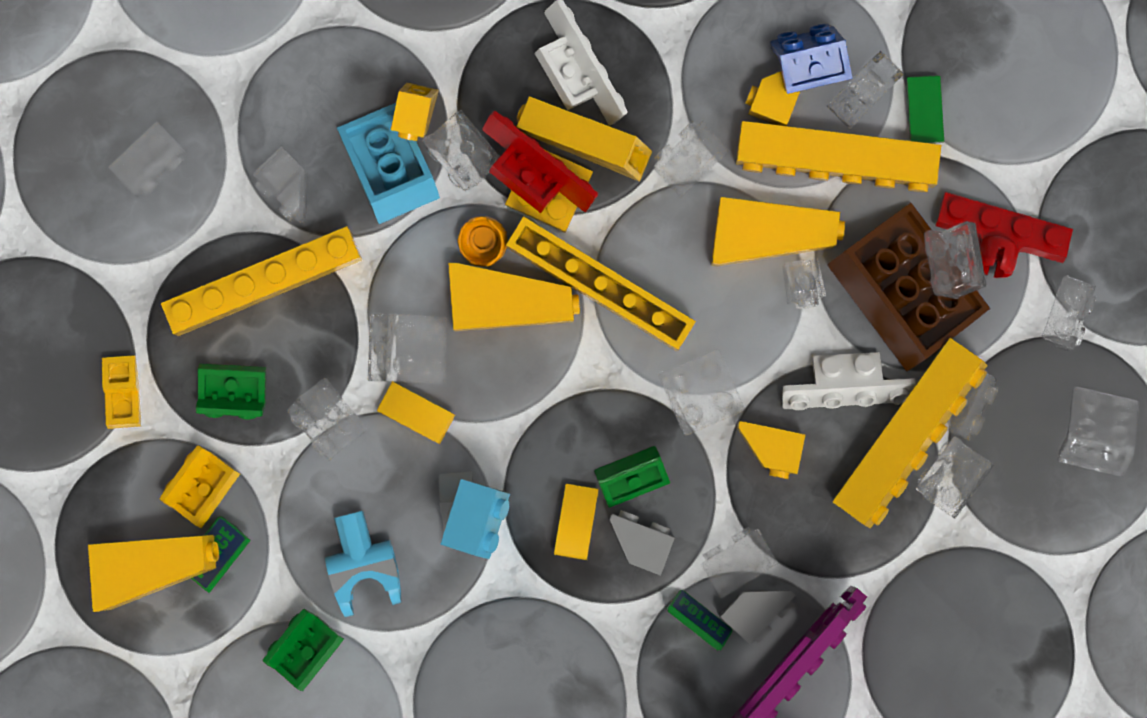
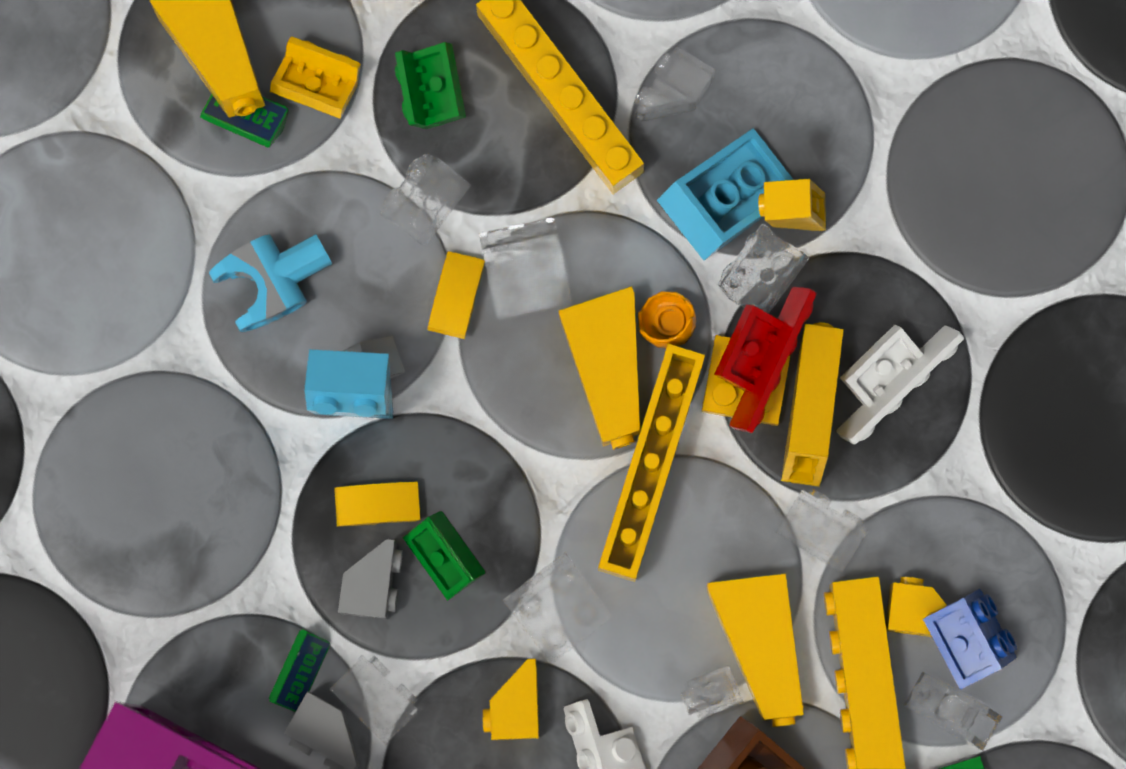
camera: 80 degrees right, 5 degrees down
(302, 649) = (162, 236): green bracket -> none

